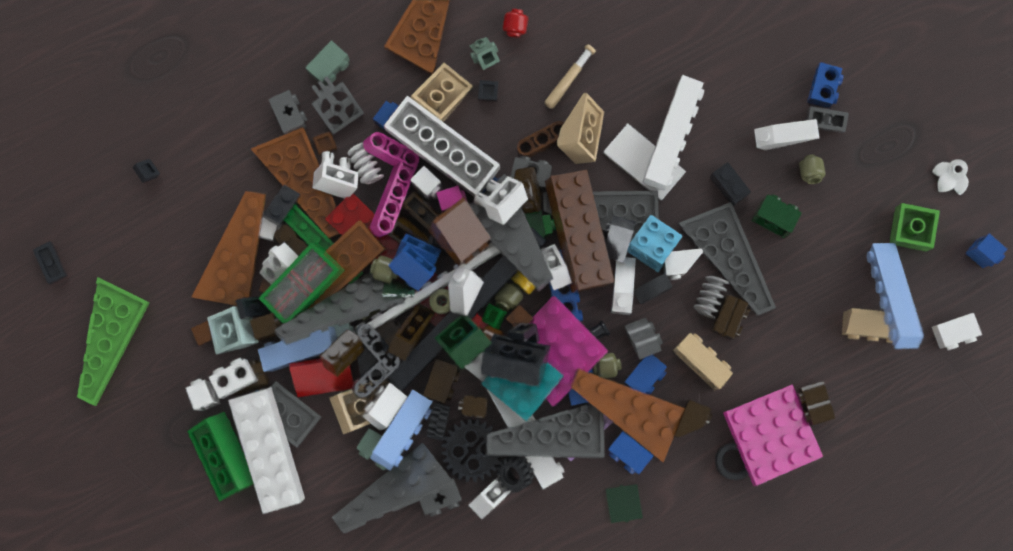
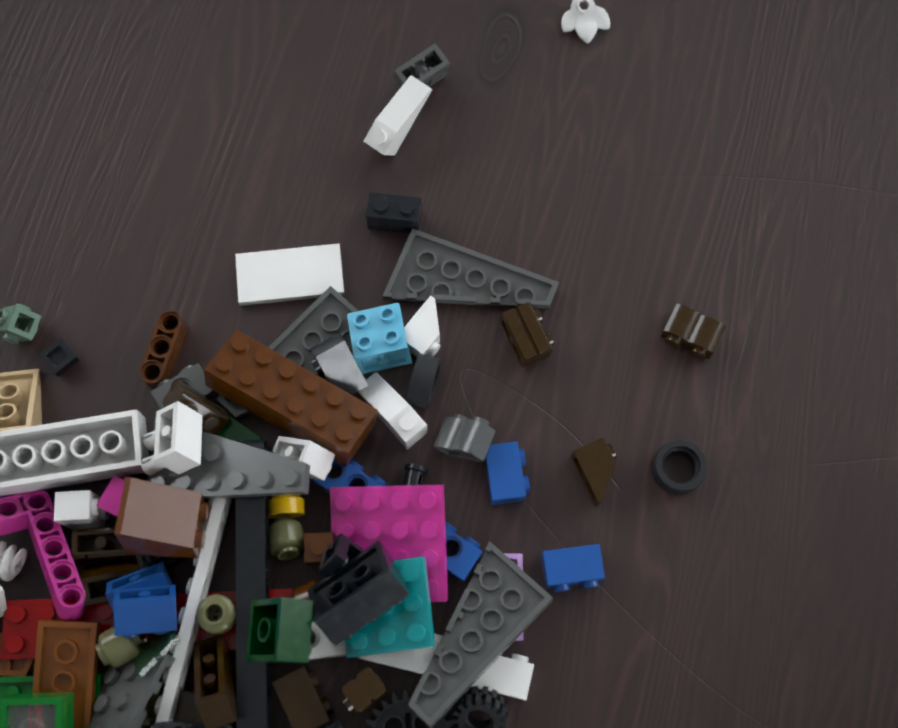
camera: 50 degrees left, 10 degrees down
(463, 290) = (227, 577): white slope -> none
(493, 316) = (290, 574): green plate -> none
(515, 23) = (23, 267): red head -> none
(549, 225) = (255, 424): green plate -> none
(566, 81) = (133, 275): tan piece -> none
(582, 131) = (195, 302): tan slope -> none
(607, 366) = (459, 503): olive head -> none
(624, 503) = (621, 625): clear green piece -> none
(639, 414) = (541, 517): dark orange wing -> none
(673, 132) = (290, 220): white brick -> none
(703, 361) = (546, 401): tan slope -> none
(710, 296) = (485, 334): light grey piece -> none
(772, 435) = (687, 403): dark pink plate -> none
(776, 215) = (468, 197): dark green brick -> none
(812, 169) = (456, 128): olive head -> none
(820, 84) = (384, 48): blue brick -> none
(865, 324) = (664, 204): tan slope -> none
(894, 296) = (657, 156): light blue brick -> none
(914, 227) = (602, 88): bright green brick -> none
(957, 331) = (739, 140): white brick -> none
(986, 251) = (687, 46): blue brick -> none

